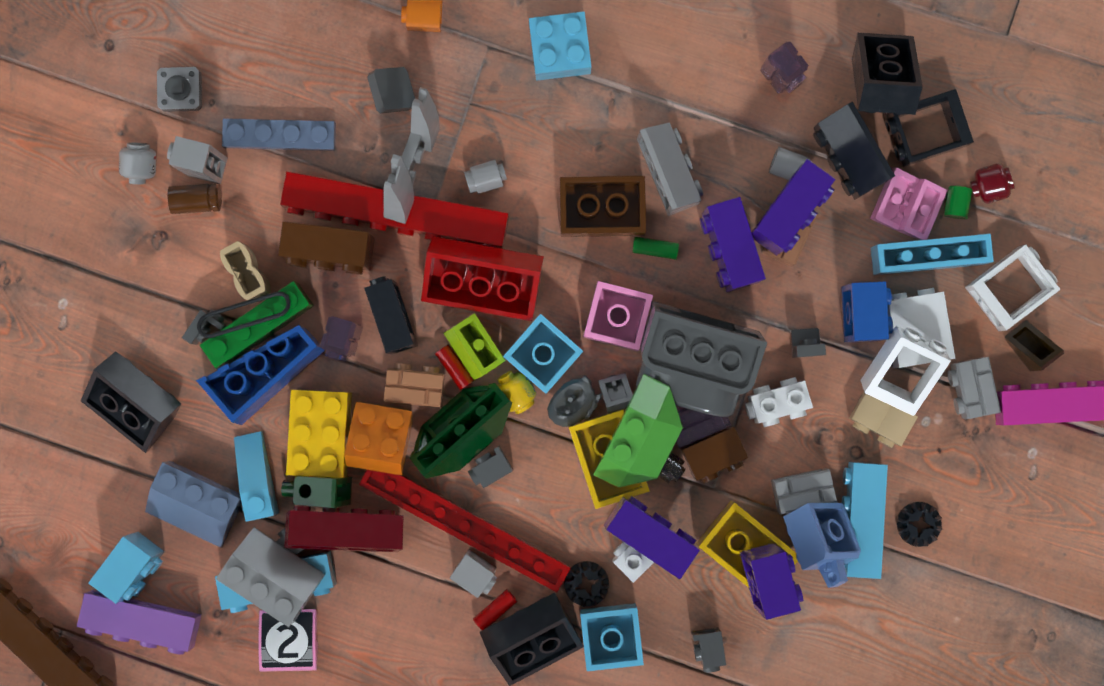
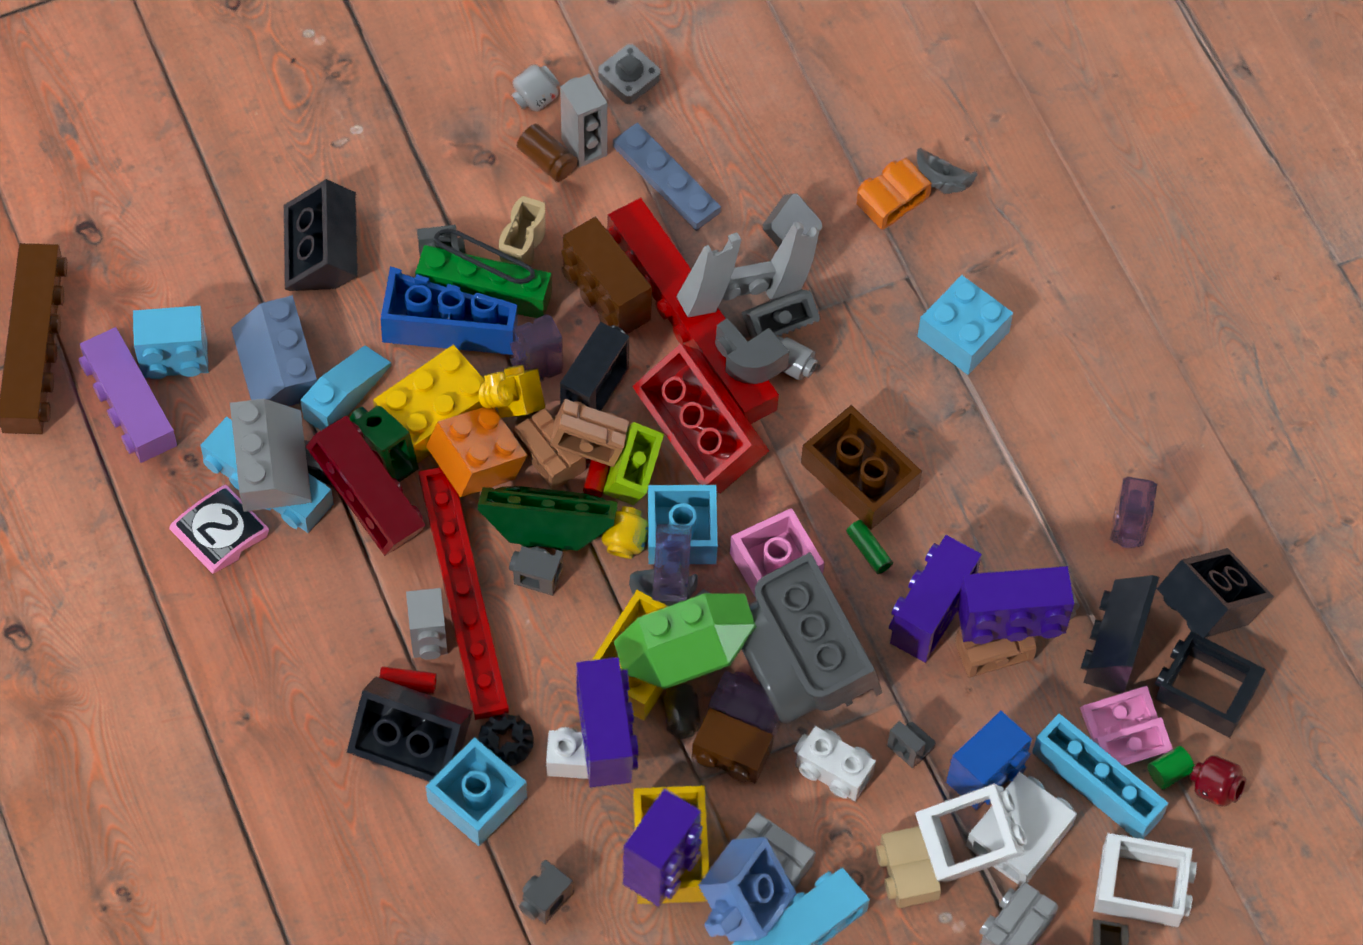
camera: 45 degrees right, 25 degrees down
(358, 381) = (514, 392): none -> yellow brick
(432, 359) = (589, 432): none -> nougat brick
(452, 159) = (782, 314): none -> dark grey brick
(475, 211) = (753, 359): none -> dark grey brick
(574, 393) = (672, 562): none -> clear purple brick
(669, 168) = (950, 491): light grey slope -> none

